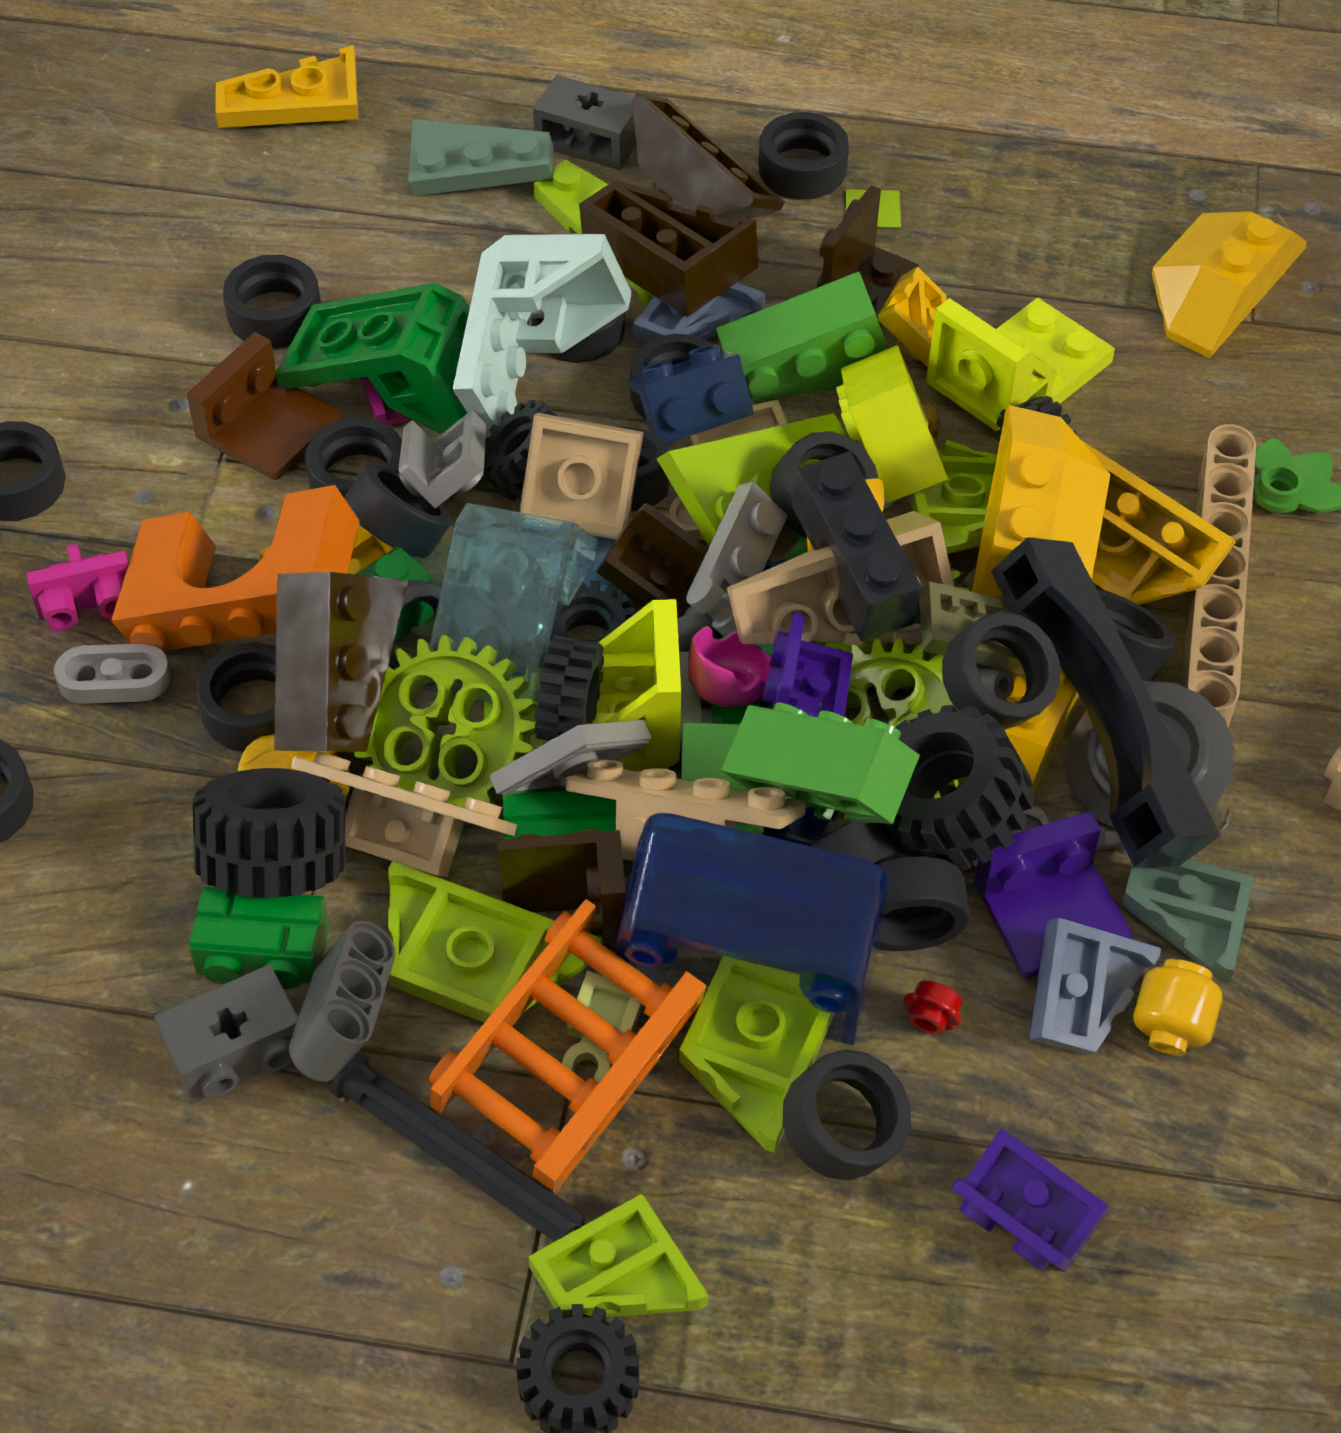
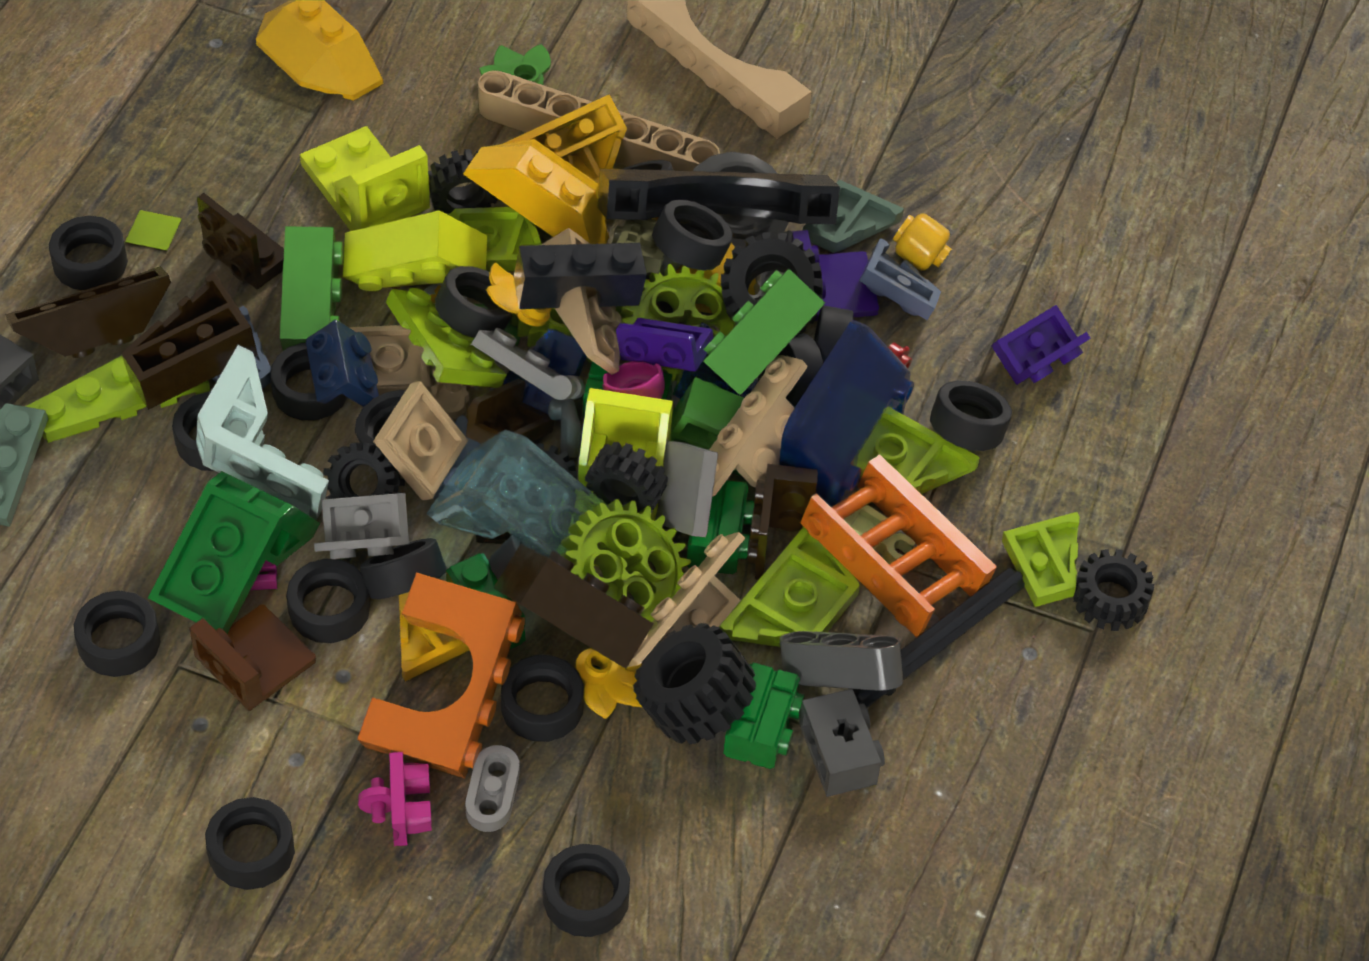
camera: 80 degrees left, 0 degrees up
(911, 312) = (282, 217): yellow wing -> none

